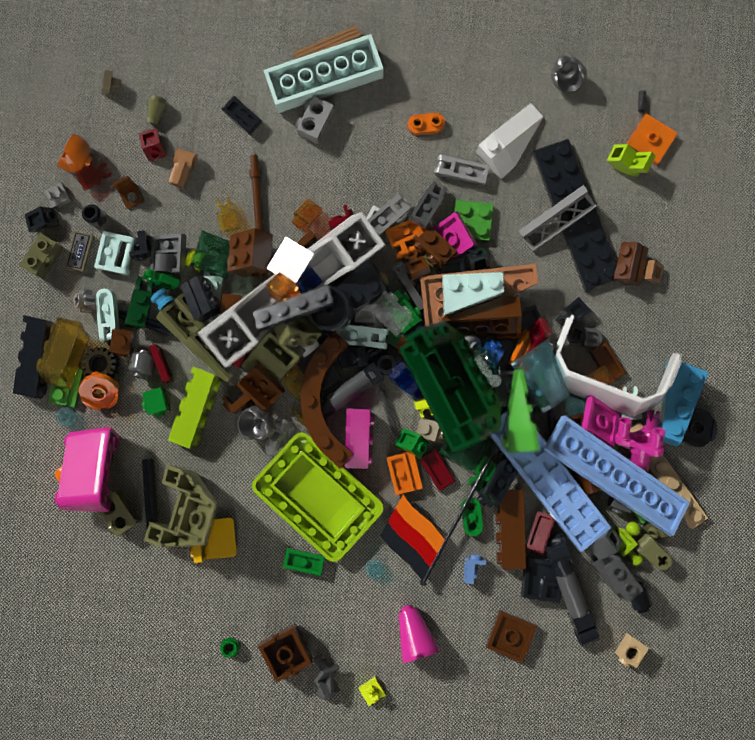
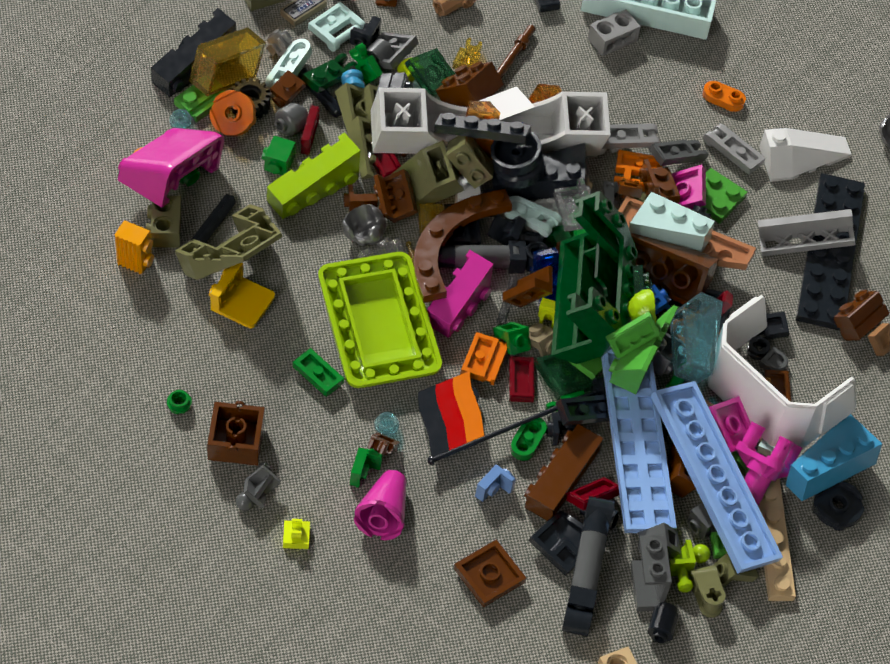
camera: 30 degrees right, 30 degrees down
(113, 556) = (133, 247): none -> light orange brick
(381, 617) = (363, 461): none -> green bracket
(383, 591) = (383, 444): none -> reddish brown plate
(403, 399) = (531, 288): none -> reddish brown panel
(505, 396) = (642, 303): none -> lime piece
(512, 423) = (633, 335): none -> bright green plate

